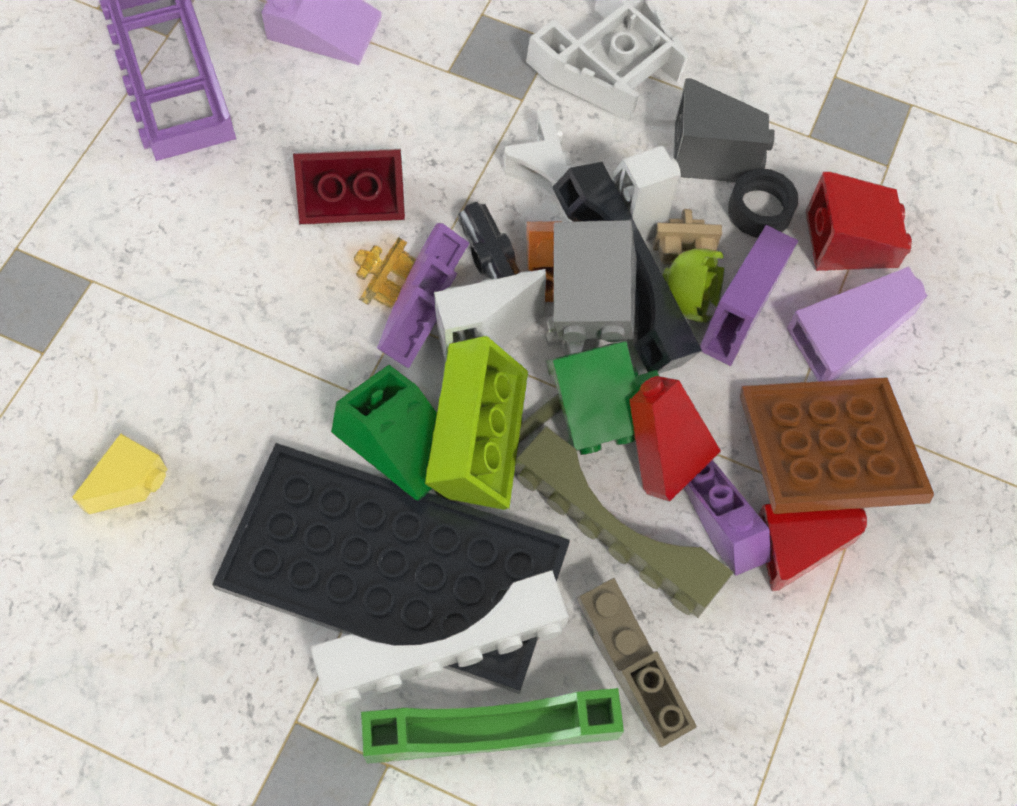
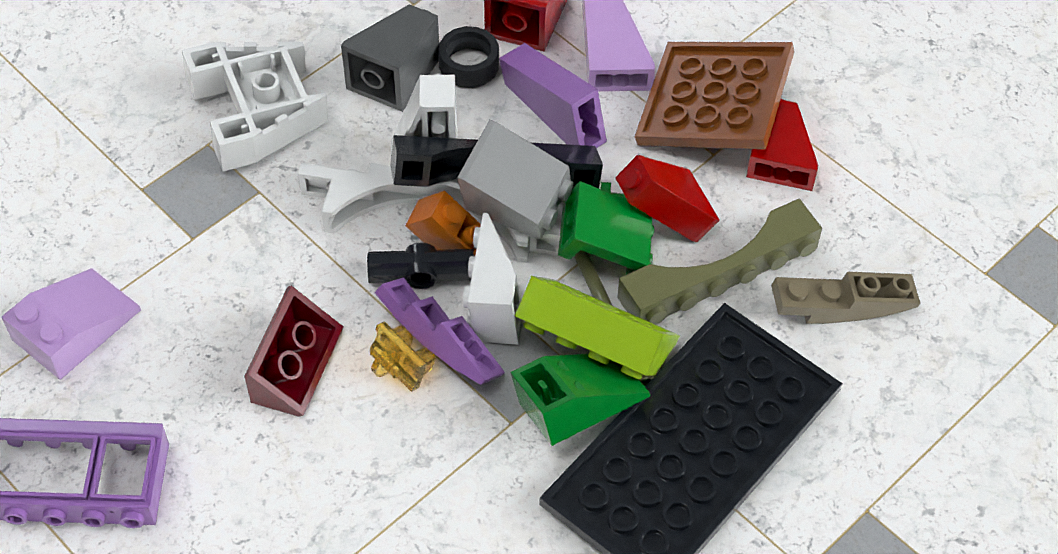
camera: 65 degrees left, 10 degrees down
(359, 665) = (786, 487): white arch -> none
(460, 731) = (866, 413): bright green arch -> none
(684, 235) = (474, 117): tan hips -> none
(696, 282) = (530, 121): lime cylinder -> none
(729, 520) = (750, 188): medium lavender slope -> none

